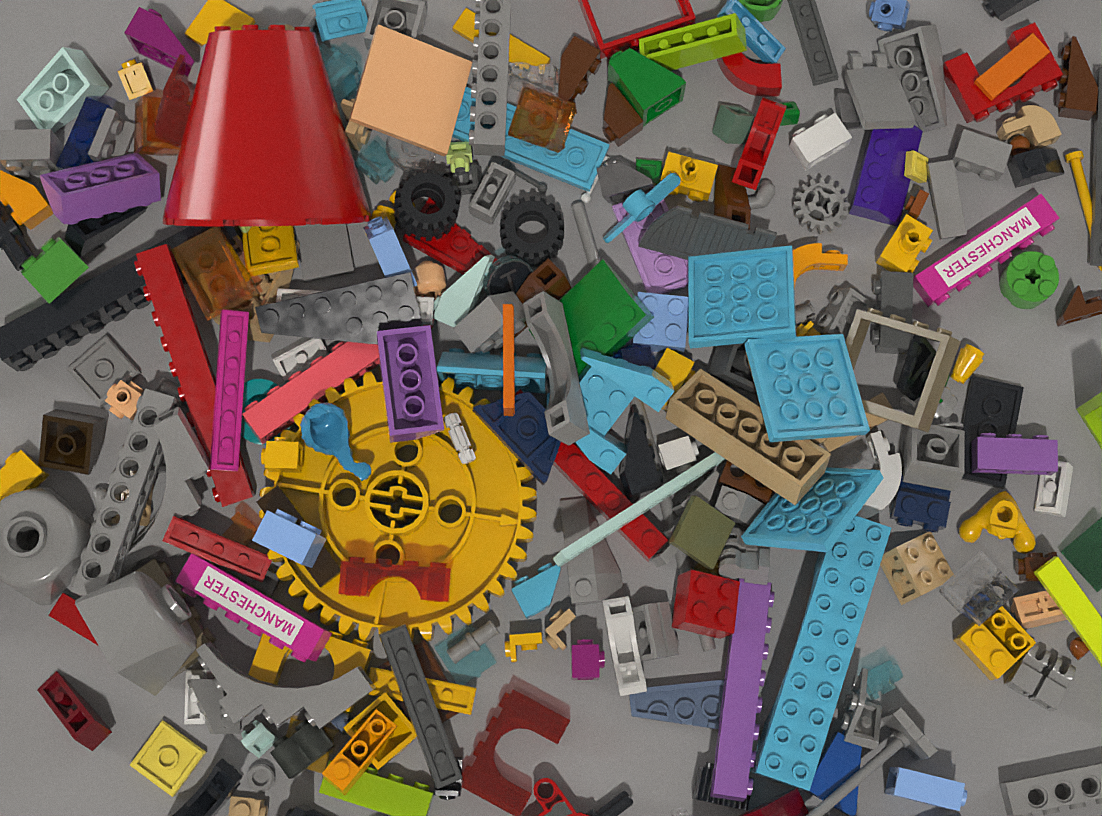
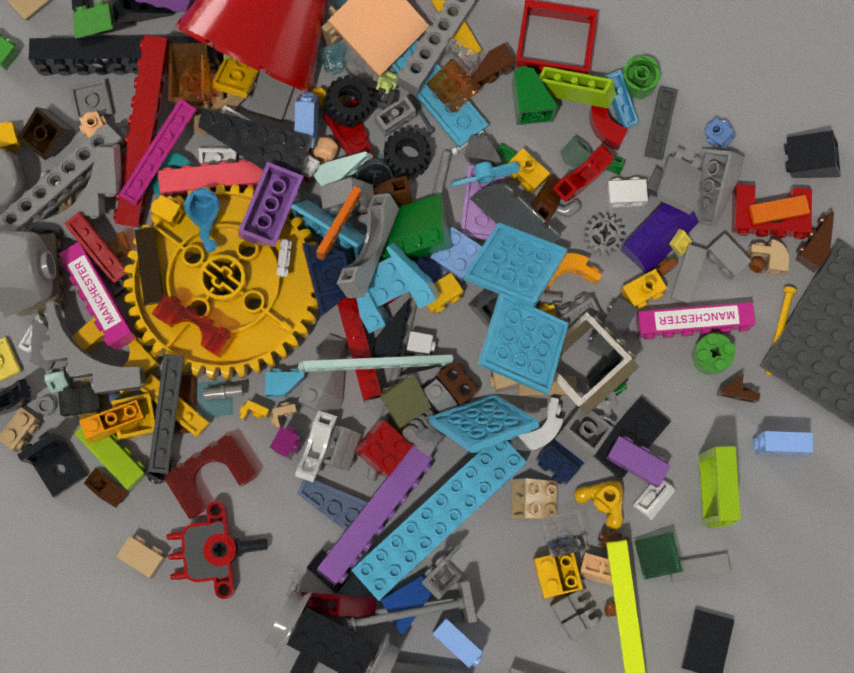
camera: 25 degrees right, 0 degrees up
(282, 534) = (140, 262): light blue brick -> none
(620, 118) = (504, 111): reddish brown slope -> none
(739, 434) = (461, 345): tan brick -> none
(882, 679) = (470, 558): clear light blue brick -> none
(966, 363) = (642, 386): yellow cone -> none
(1034, 166) = (760, 283): black slope -> none

